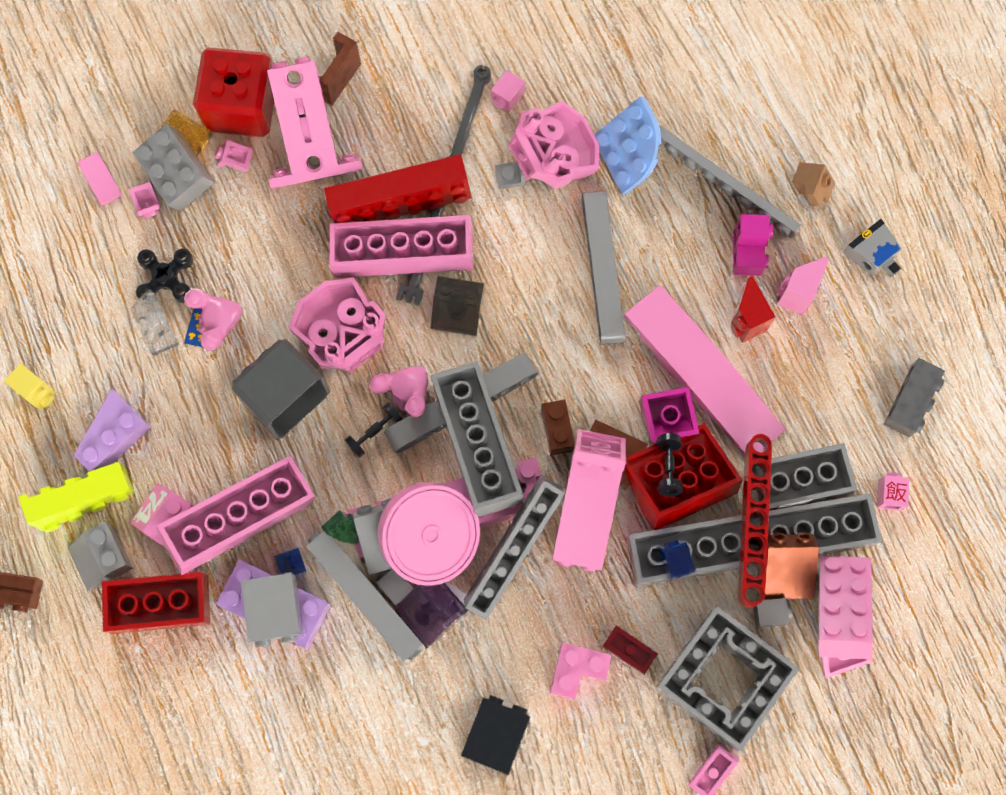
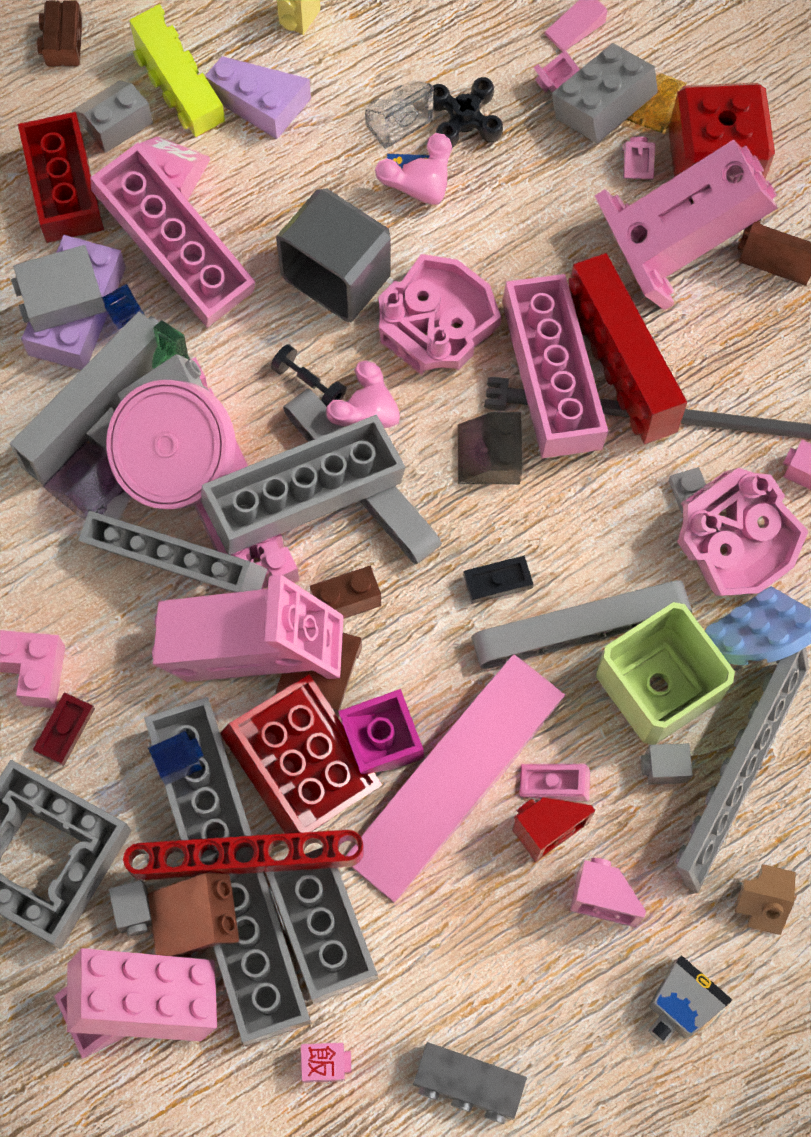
camera: 80 degrees right, 5 degrees down
(559, 318) = (498, 579): none -> black plate
(660, 197) = (670, 648): none -> yellowish green plate
(670, 486) = (338, 731): black wheel -> none
(712, 229) = (667, 764): none -> light grey brick
(713, 307) = (555, 781): none -> bright pink slope
(749, 244) = (656, 816): dark pink brick -> none

